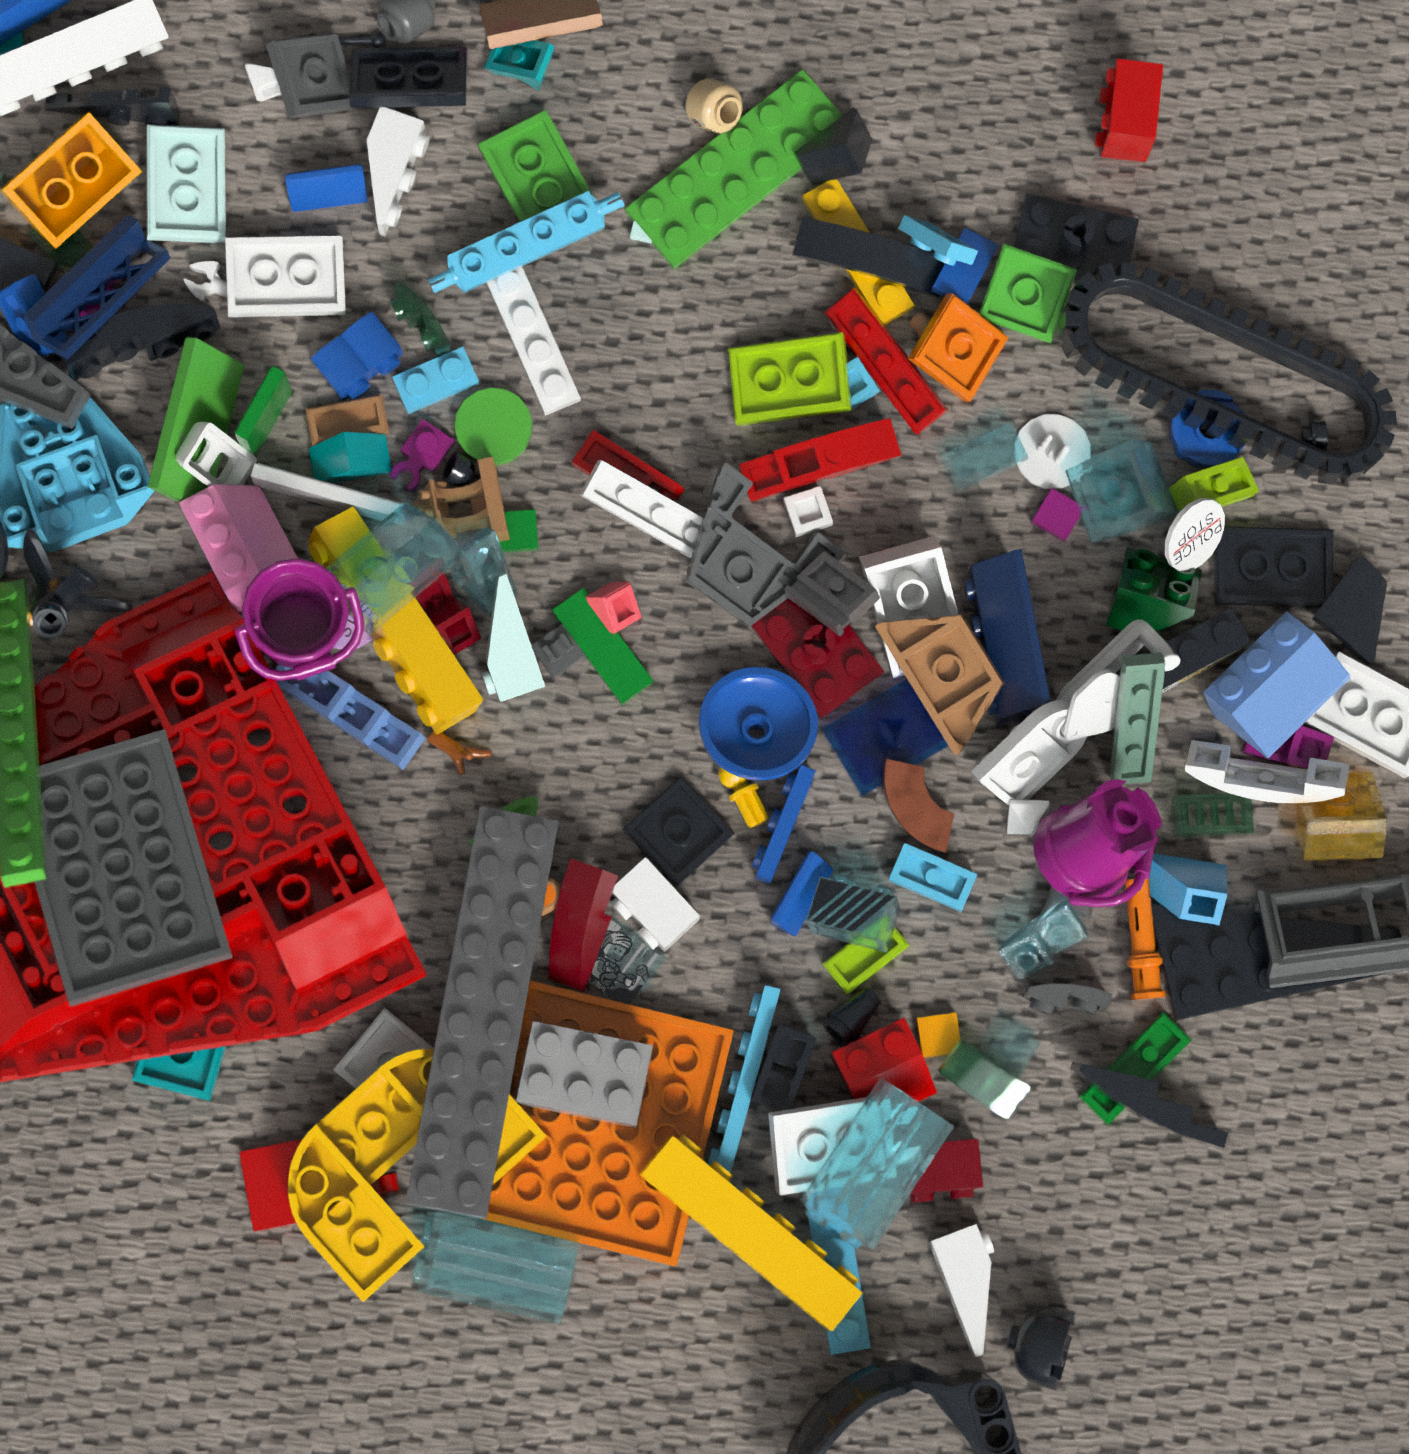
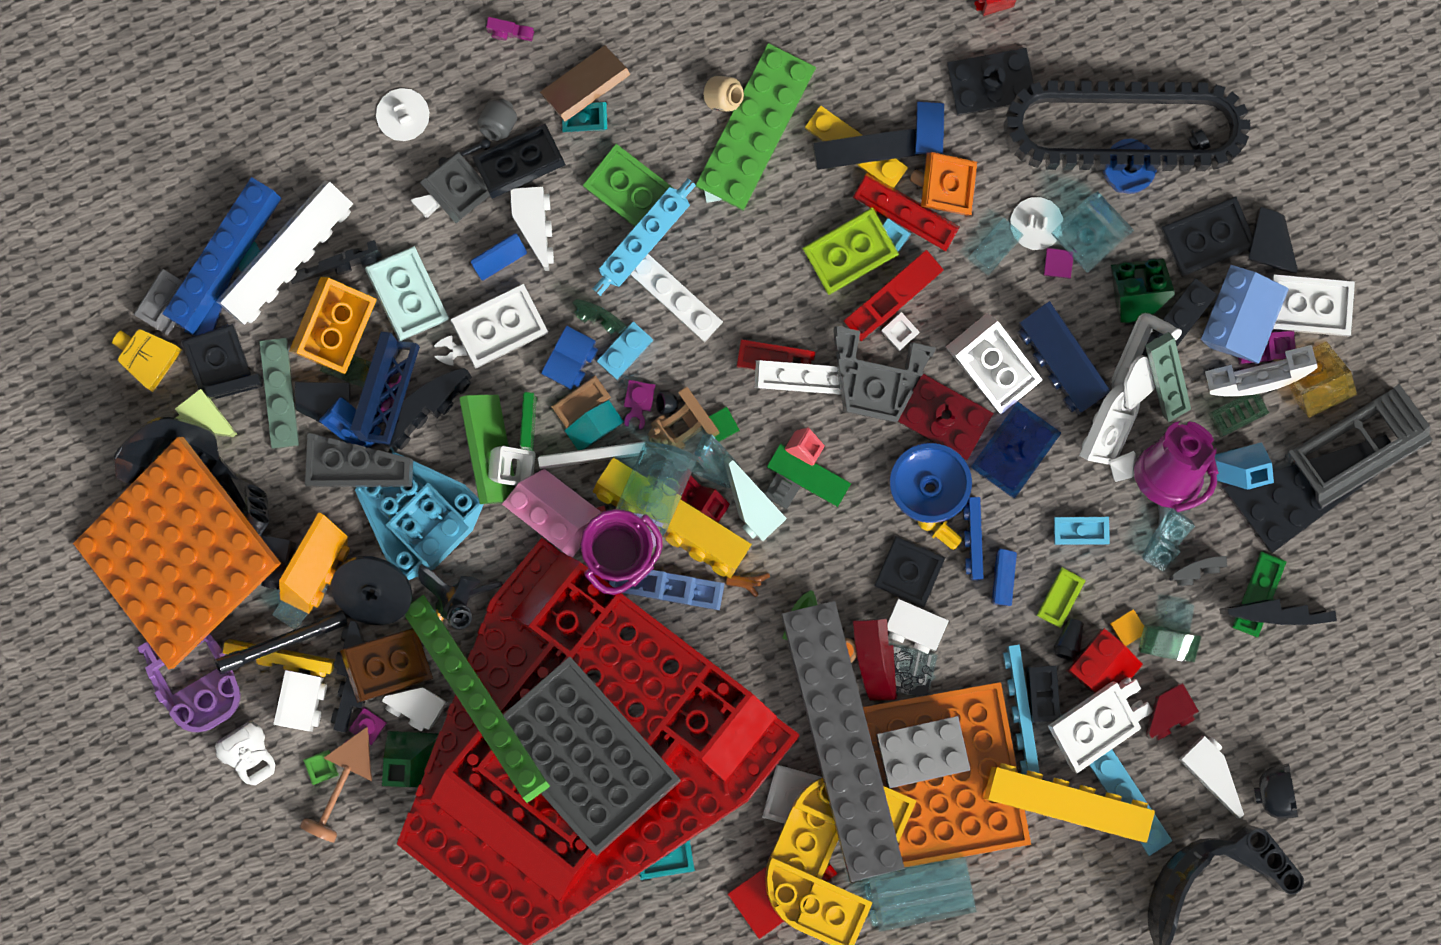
camera: 20 degrees left, 5 degrees up
(493, 425) = (675, 364): bright green tile -> none
(832, 593) = (941, 379): flat silver plate -> none
(836, 150) = (814, 88): black slope -> none
(853, 913) = (1043, 575): brick -> none
(875, 1165) = (1128, 728): clear light blue brick -> none
(913, 806) = (1050, 491): copper tile -> none
(928, 237) = (901, 119): medium azure plate -> none
(945, 671) = (1034, 398): medium nougat wing -> none
(1027, 293) = (977, 128): bright green tile -> none
(1143, 959) = (1235, 524): orange pin -> none
(1194, 534) = (1152, 240): white piece -> none
(1222, 483) = (1150, 204): lime plate -> none

